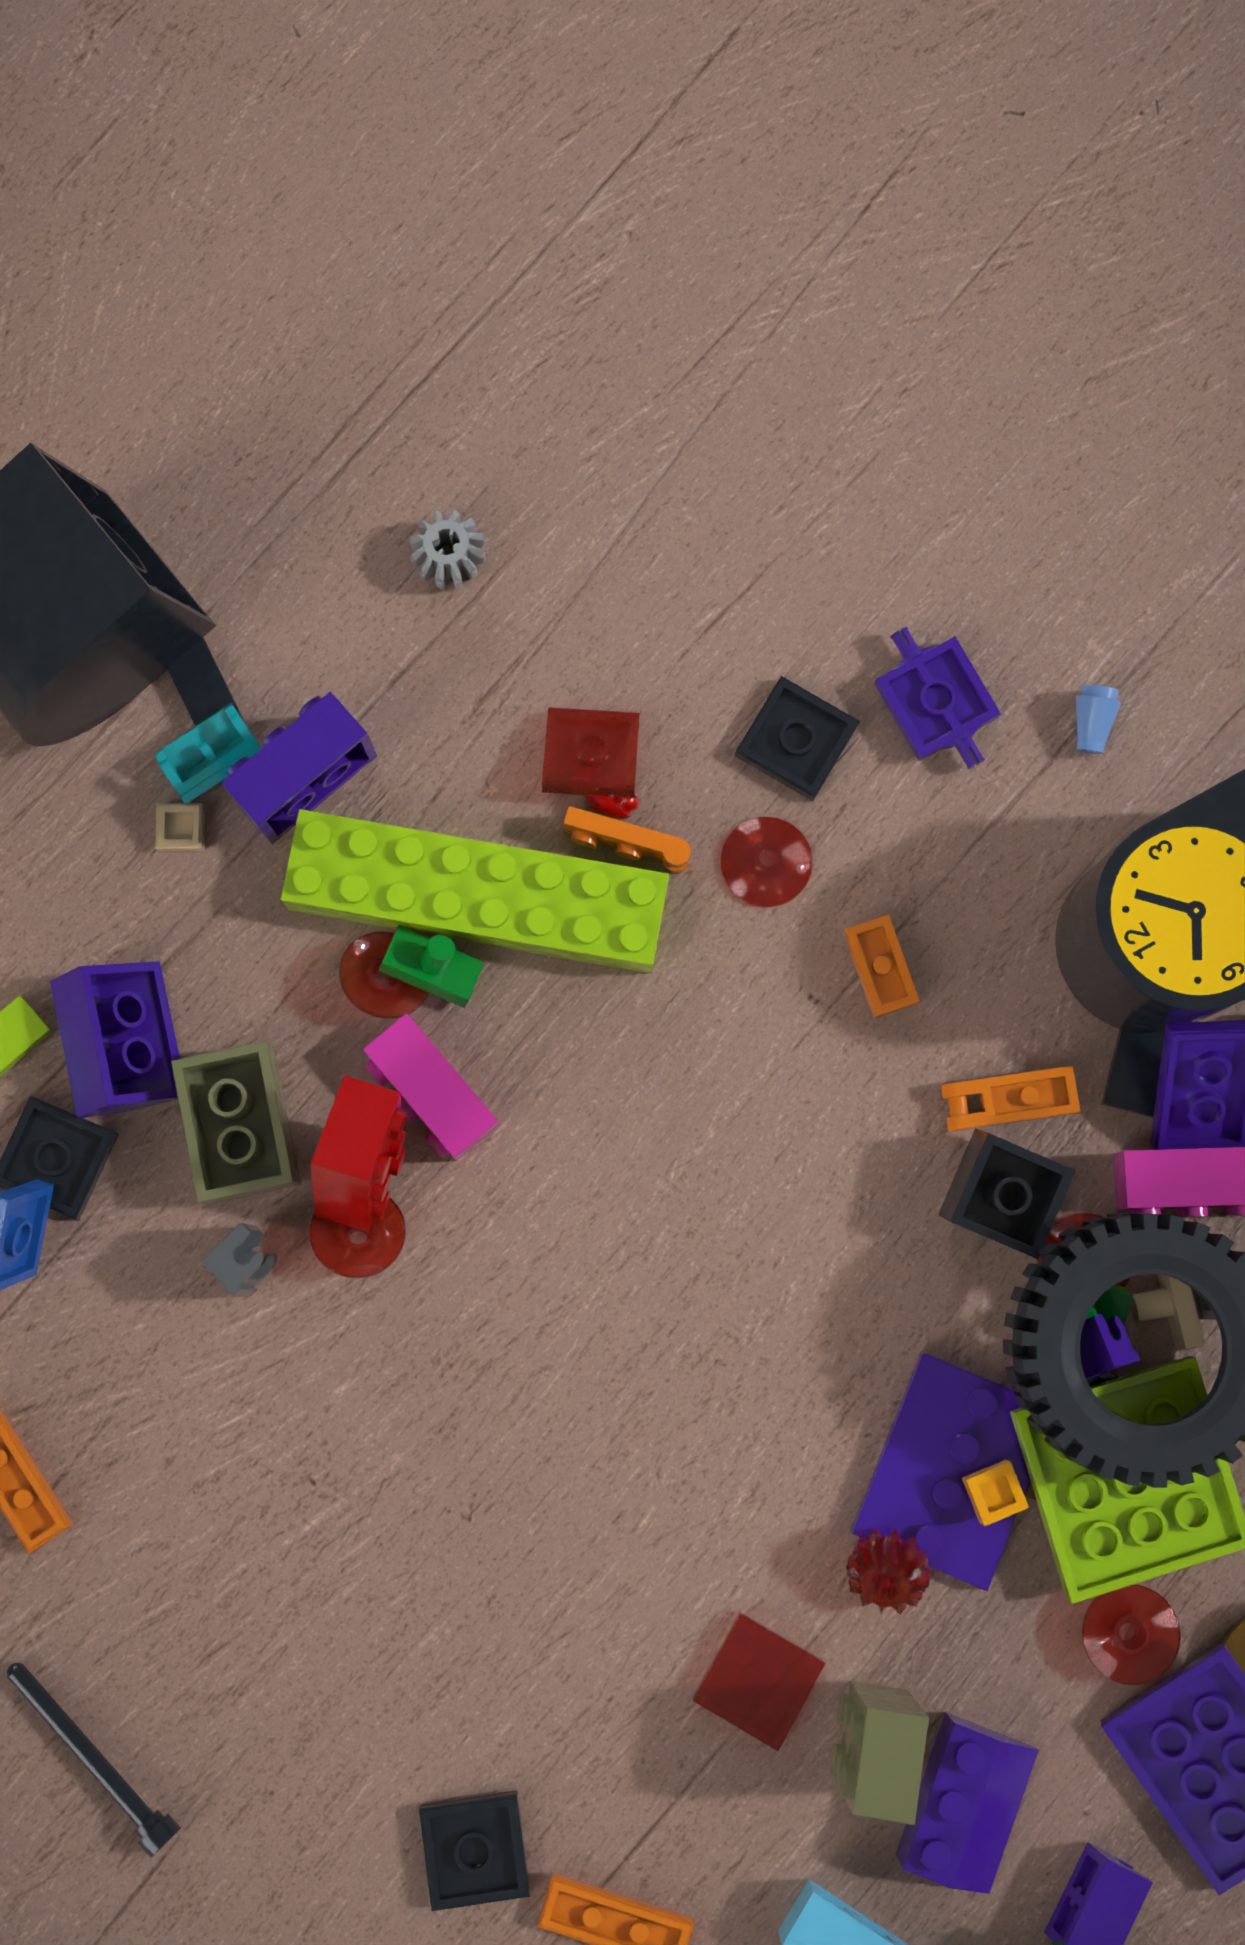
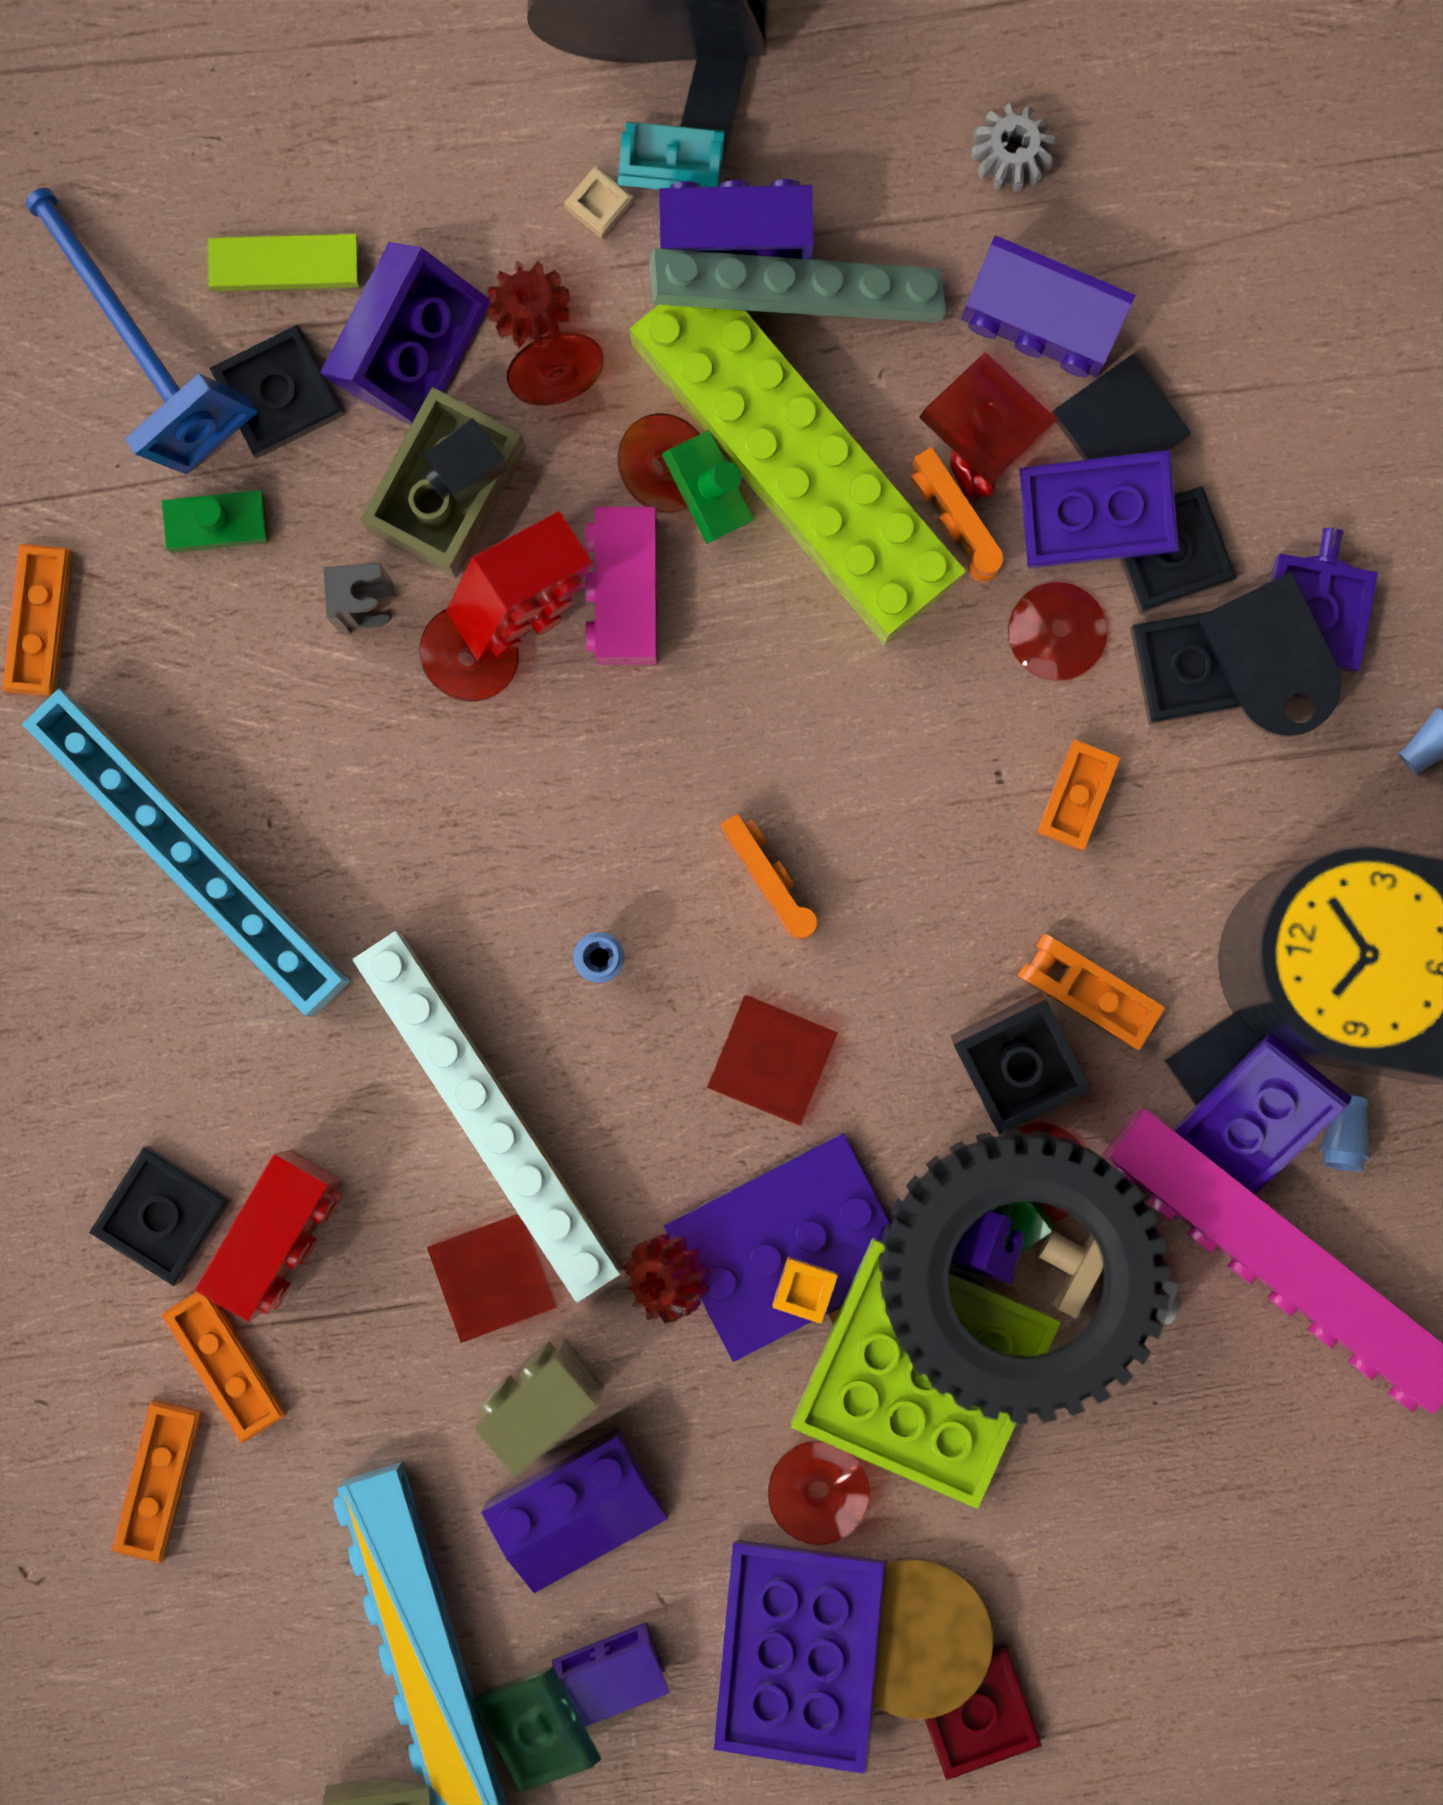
camera: 40 degrees right, 5 degrees up
(86, 1292) = (215, 521): none -> green tile
(175, 936) = (519, 290): none -> clear red gear
(242, 1097) = (464, 463): none -> black brick
(249, 972) = (556, 370): none -> clear red dish
(269, 1559) = (186, 853): none -> medium azure brick
(375, 772) = (796, 286): none -> sand green plate
(568, 641) = (1046, 308): none -> dark purple slope
(573, 1796) = (271, 1236): none -> red brick
(643, 1391) = (588, 946): none -> medium blue cone
(658, 1564) = (488, 1116): none -> light aqua brick
(686, 679) = (1120, 415): none -> black tile
(715, 1211) = (769, 878): none -> orange plate
(724, 752) = (1099, 509): none -> dark purple tile
(826, 1342) = (772, 1060): none -> clear red tile
(879, 809) = (1179, 670): none -> black tile
(932, 753) = (1271, 653): none -> black tile

